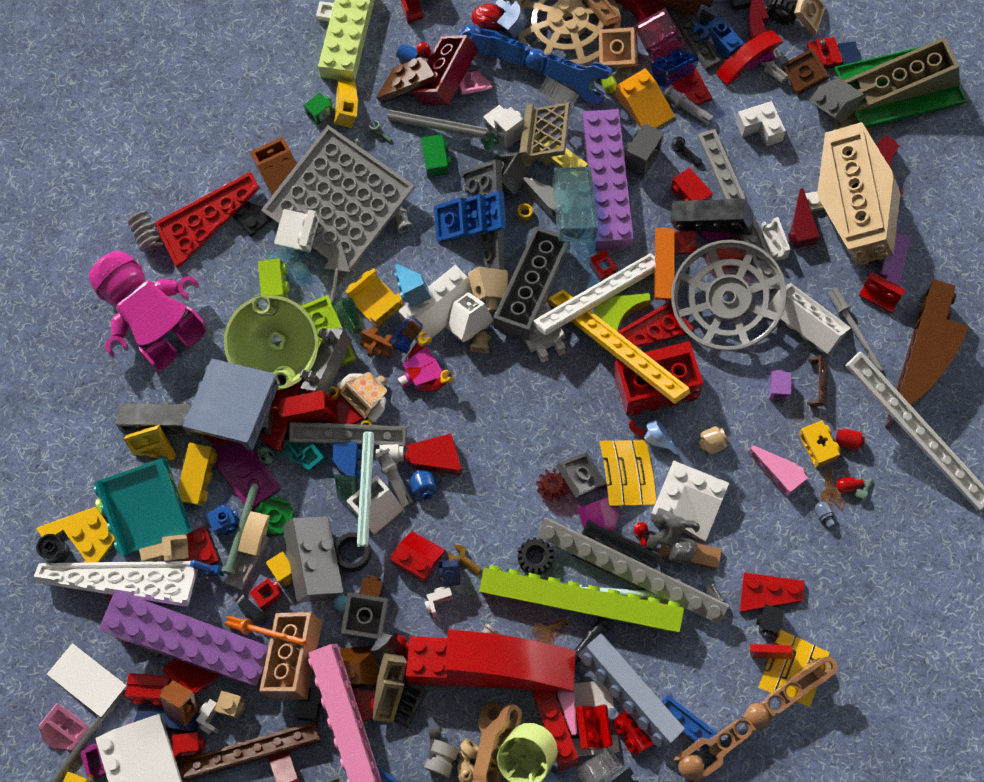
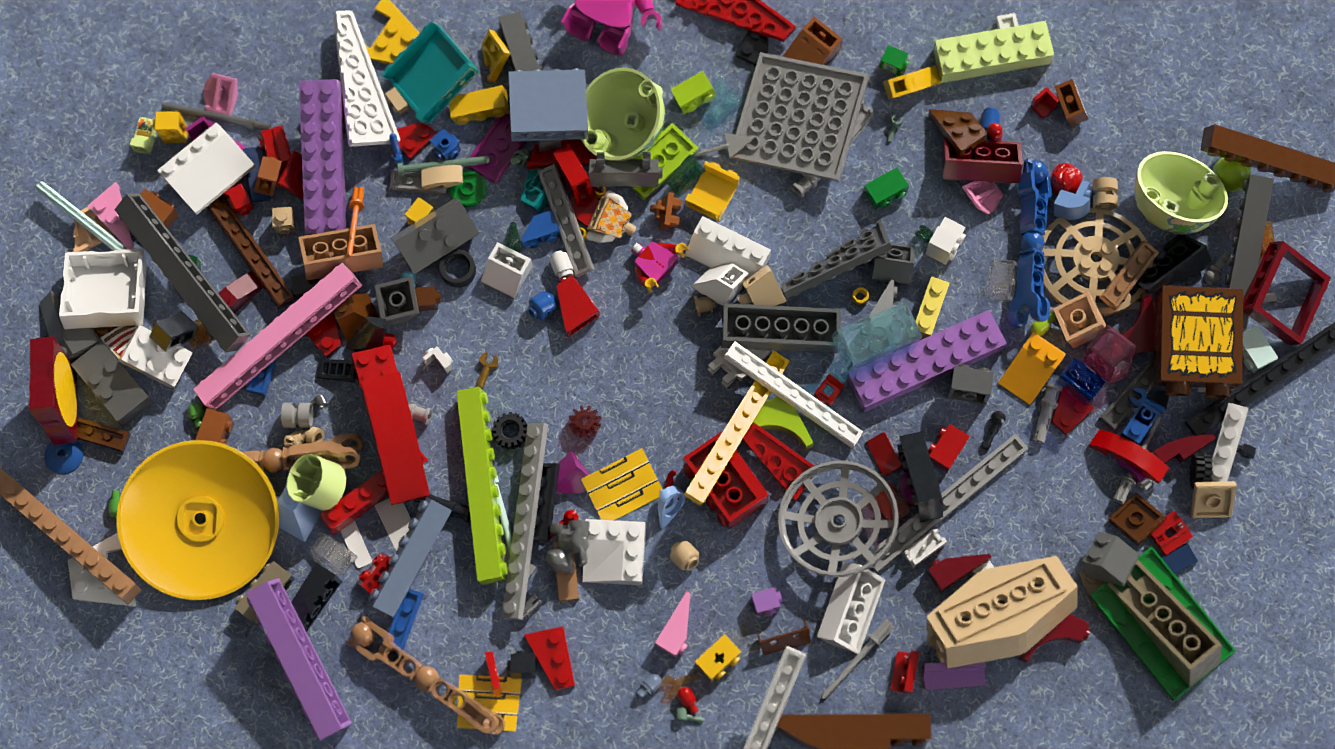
camera: 70 degrees right, 5 degrees up
(52, 549) = (368, 16): black wheel -> none
(86, 680) = (267, 95): white sticker -> none
(175, 548) = (403, 116): tan panel -> none
(206, 715) = (266, 205): white bracket -> none
(251, 609) = (374, 203): black beam -> none
(259, 592) = (390, 204): red brick -> none
(297, 230) = (750, 92): white bracket -> none
(365, 489) = (512, 253): light aqua axle -> none
(389, 687) = (342, 345): dark tan slope -> none
(390, 469) = (543, 268): light grey pin -> none
(406, 334) = (678, 231): clear blue leg -> none
(412, 286) = (728, 219): dark azure slope -> none
(417, 556) = (473, 326): red slope -> none
(437, 124) = (920, 175): light grey axle -> none
(449, 572) = (466, 359): dark blue brick -> none
(470, 216) = (827, 244): blue slope -> none
(531, 132) = (944, 268): dark tan fence -> none
(547, 630) = (447, 467): clear orange bar -> none
(567, 704) = (377, 509): bright pink slope -> none
(581, 475) = (603, 443): dark grey tile -> none
(594, 727) = (368, 535): red bracket -> none
(664, 263) = (852, 446): orange tile -> none
(762, 120) = (1058, 490): white brick -> none
(850, 439) = (734, 686): red brick -> none

